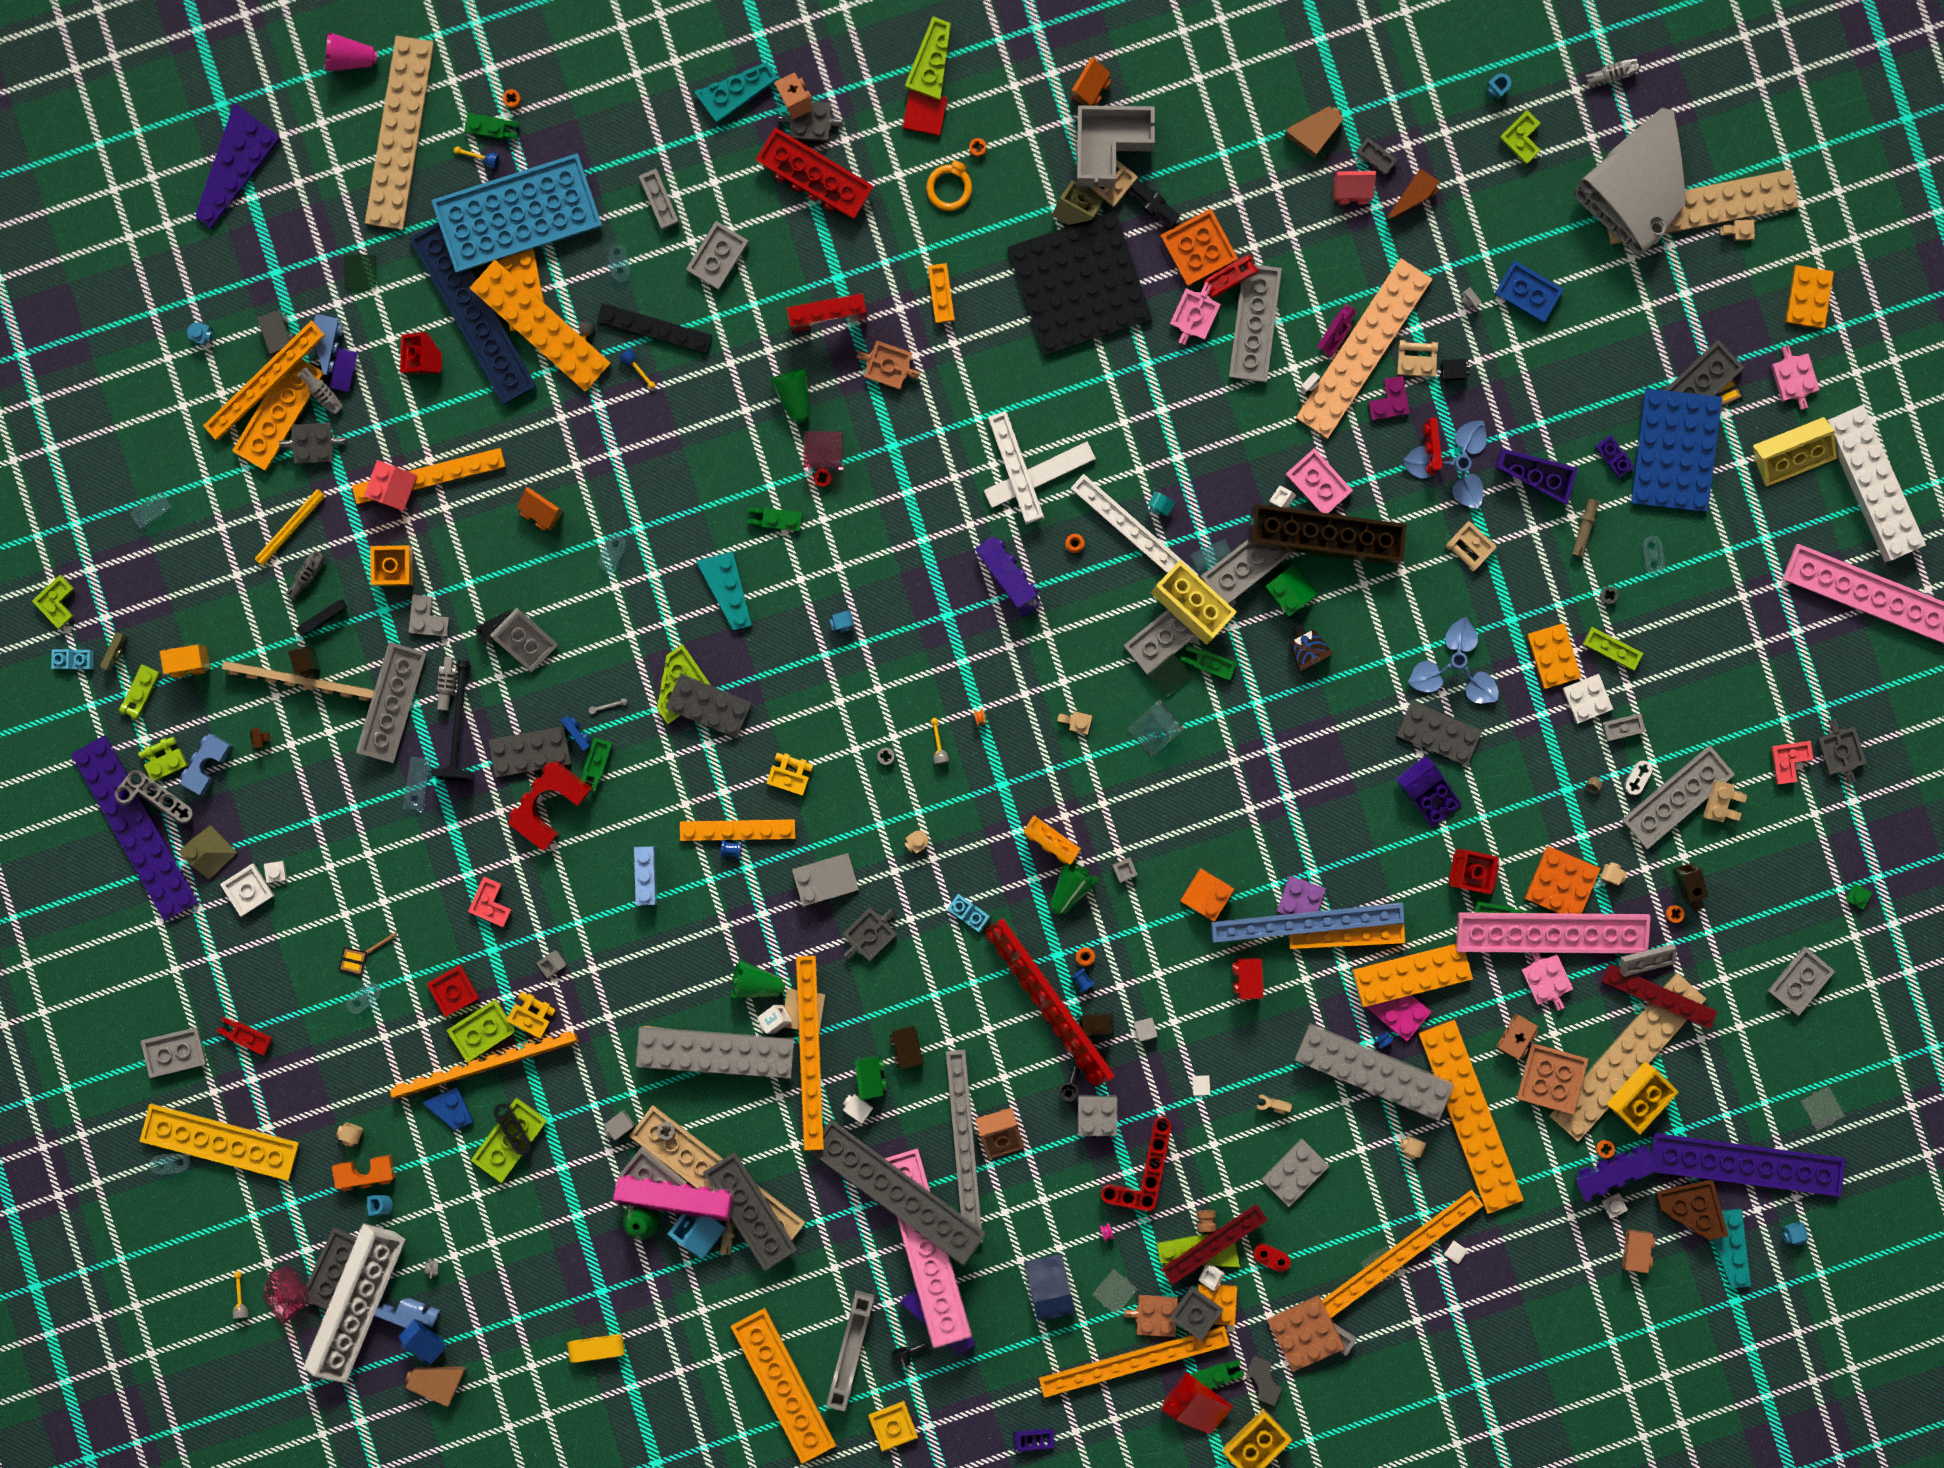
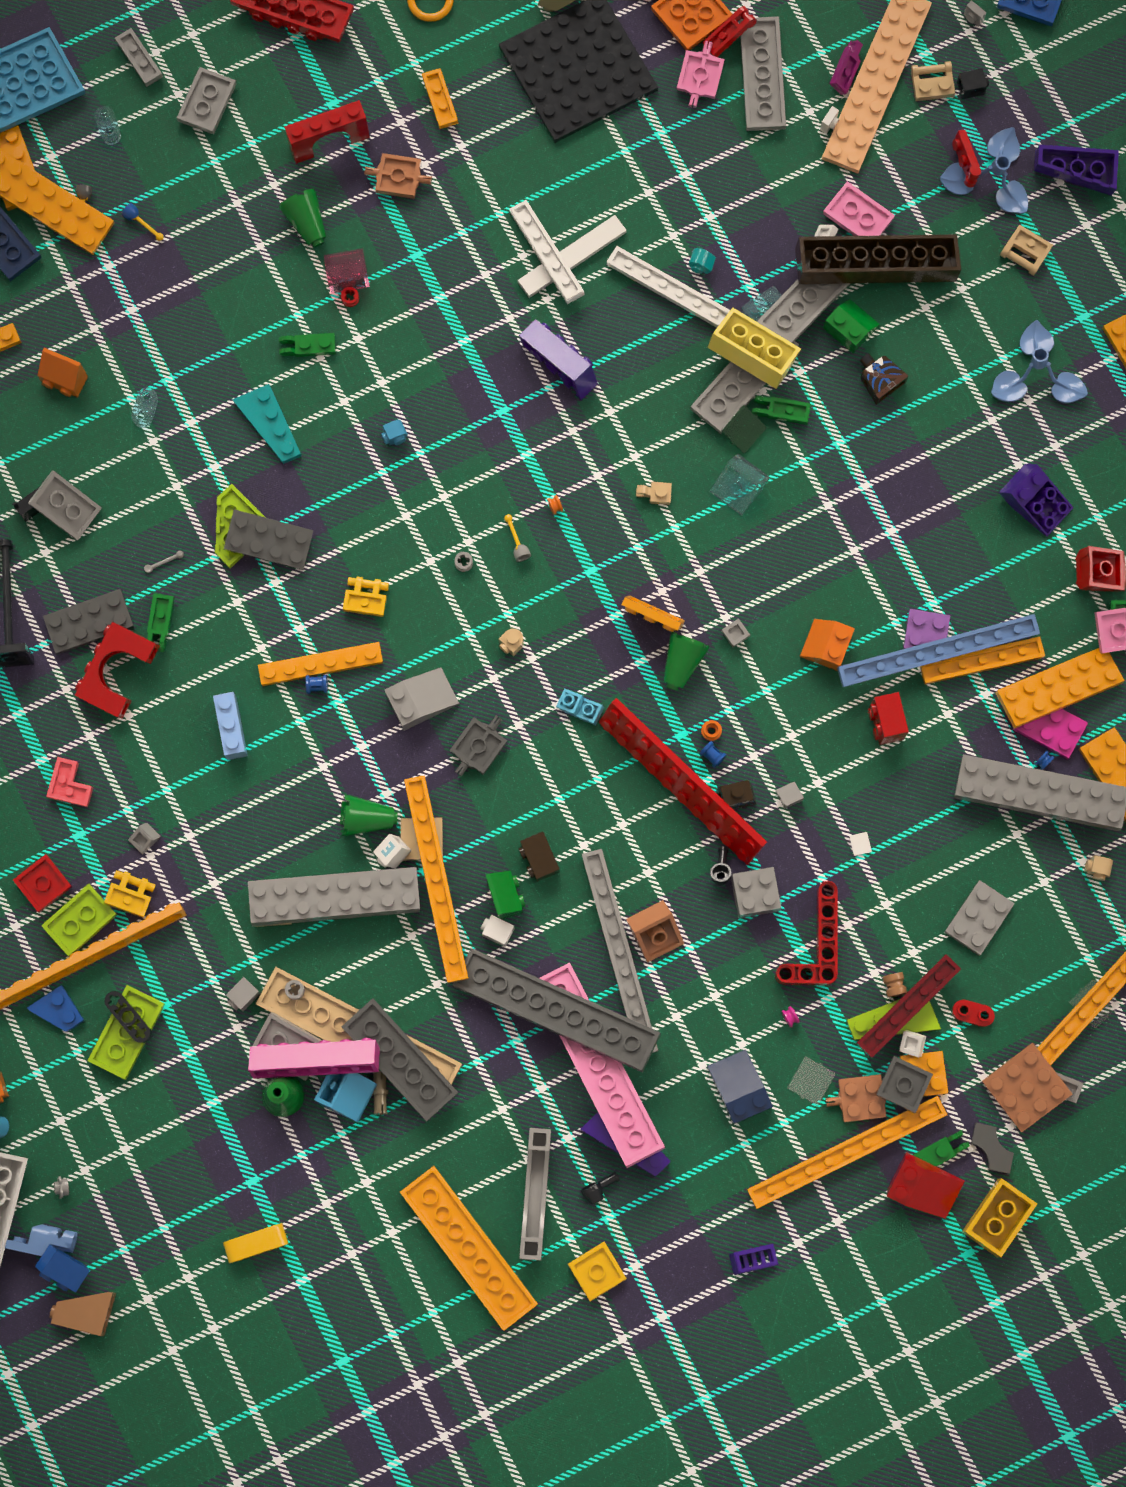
camera: 10 degrees left, 10 degrees down
(572, 726) = (128, 586): blue plate -> none
(654, 328) = (154, 181): black plate -> none
(1074, 537) = (621, 311): orange plate -> none
(1278, 1105) = (948, 849): tan plate -> none
(1395, 402) = (919, 126): magenta plate -> none
(1439, 733) = (1034, 440): dark grey plate -> none

